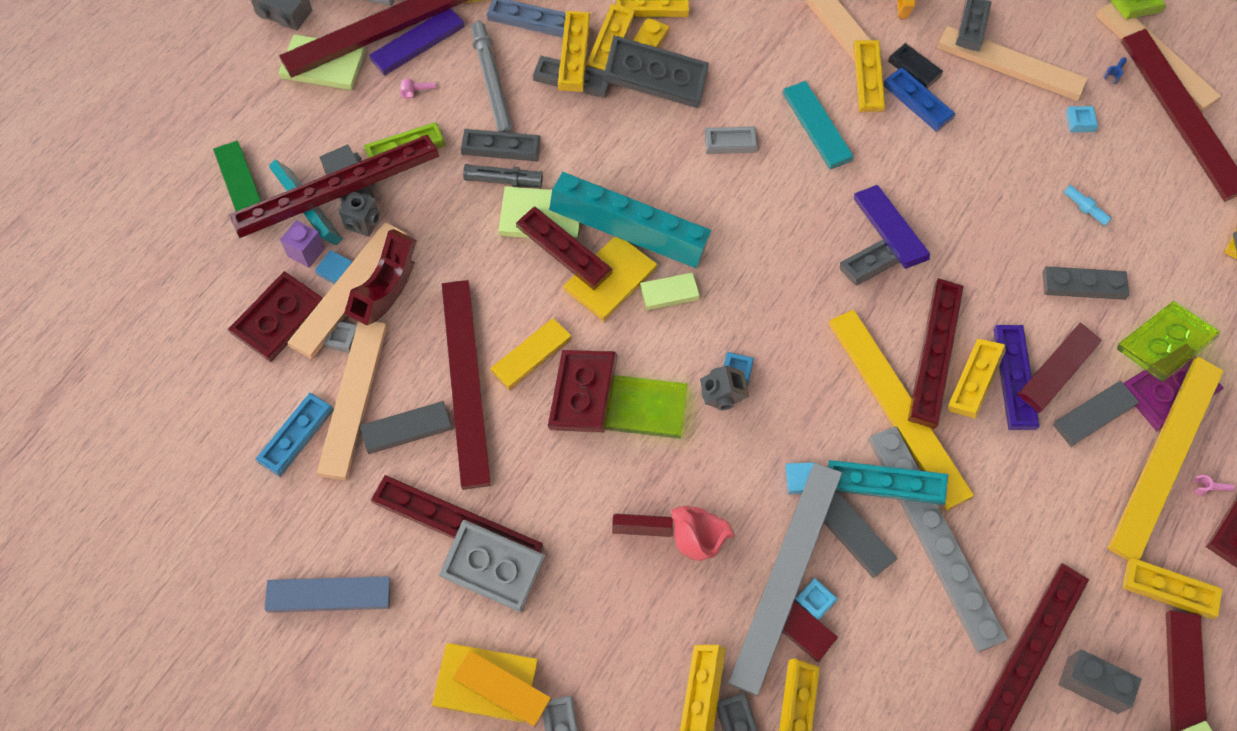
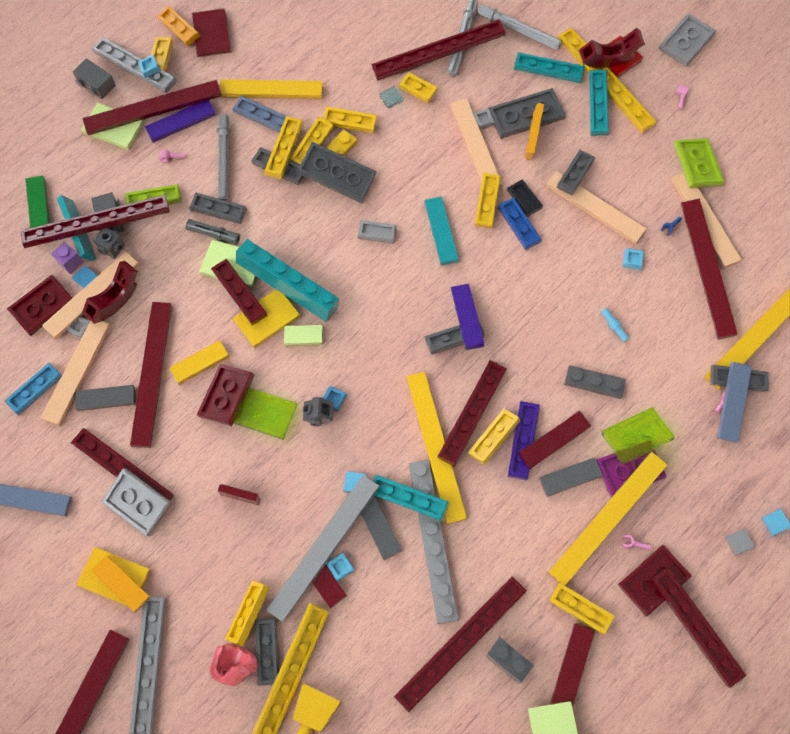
camera: 15 degrees right, 5 degrees up
(699, 533) = (273, 506): coral hair -> none

